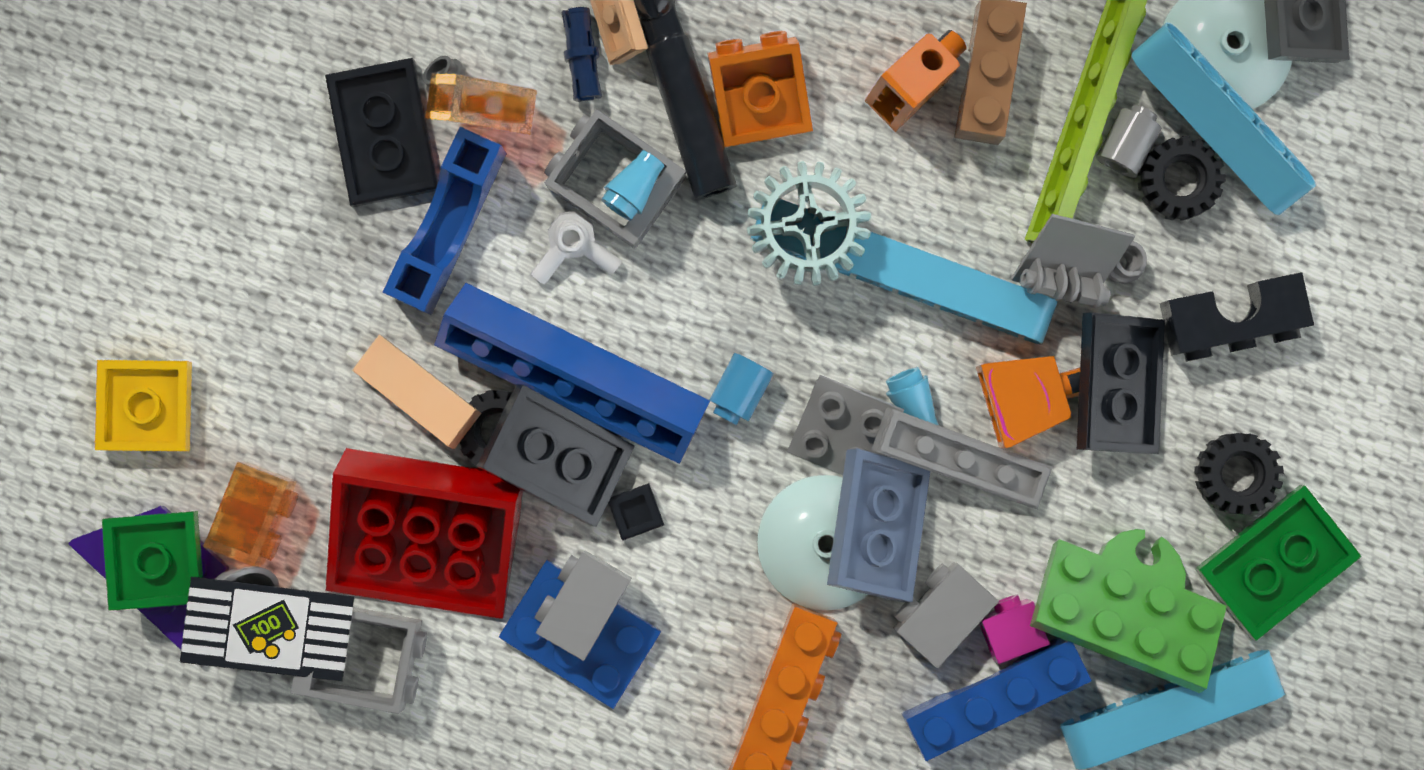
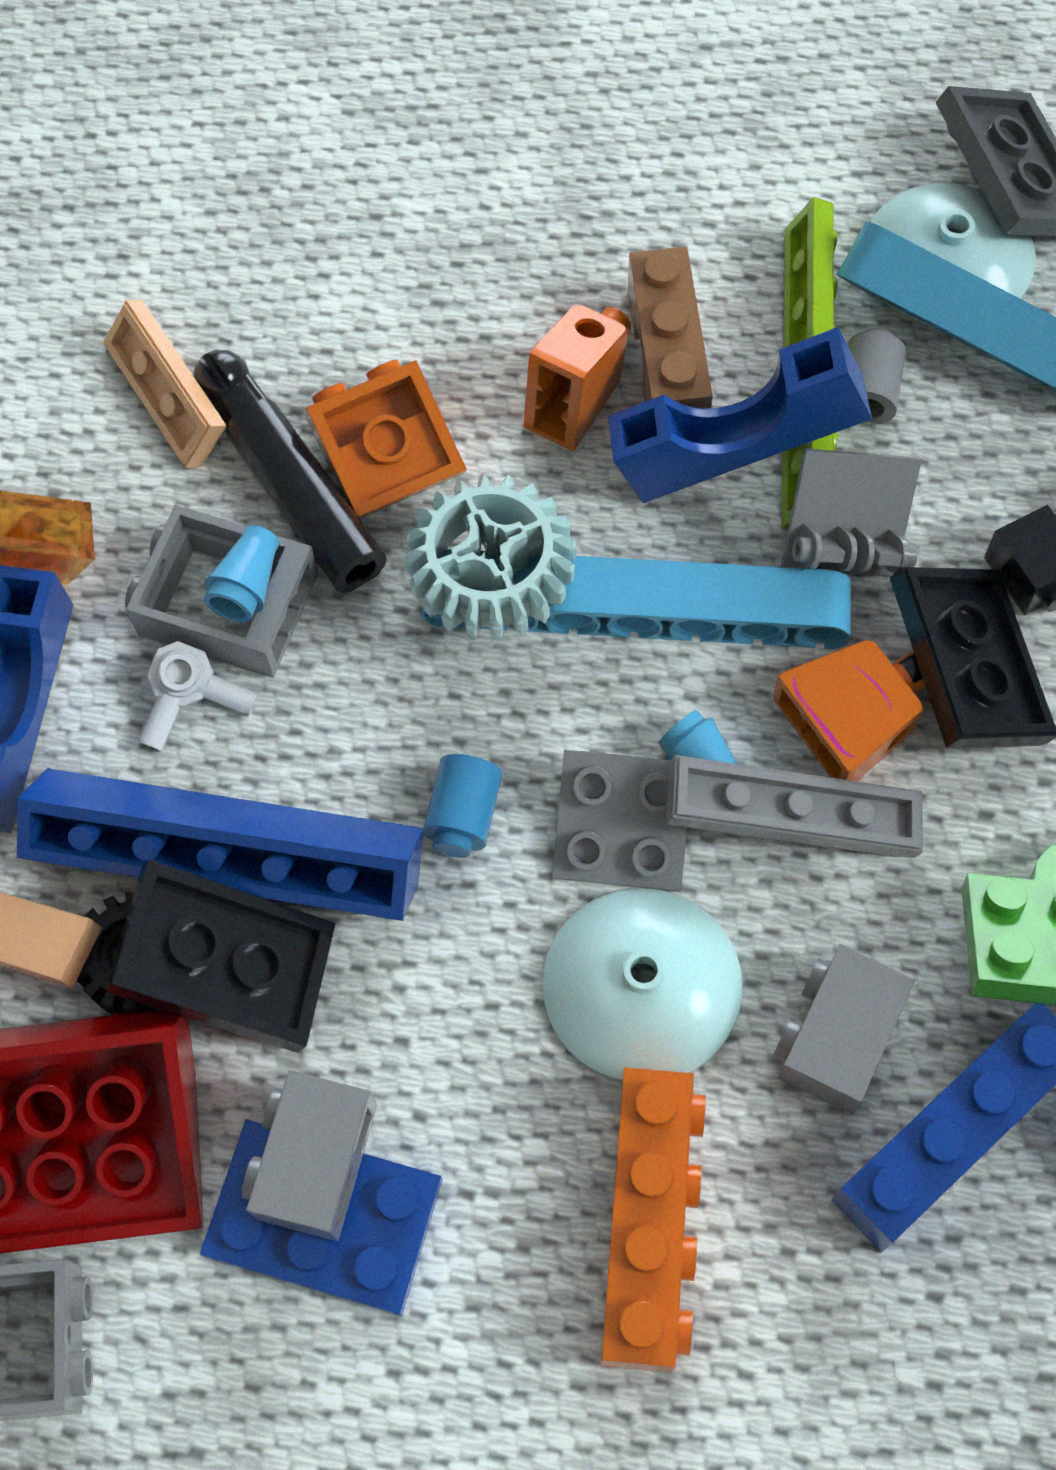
camera: 15 degrees left, 20 degrees down
(581, 54) = (144, 462): dark blue pin -> none
(635, 511) = (360, 1016): black tile -> none
(878, 526) = (710, 927): sand blue plate -> none
(1009, 629) = (948, 1022): dark pink brick -> none
(1065, 169) = (674, 446): none -> blue arch
(1135, 265) = (927, 514): light grey plate -> none
(1208, 178) = (956, 372): black tyre -> none

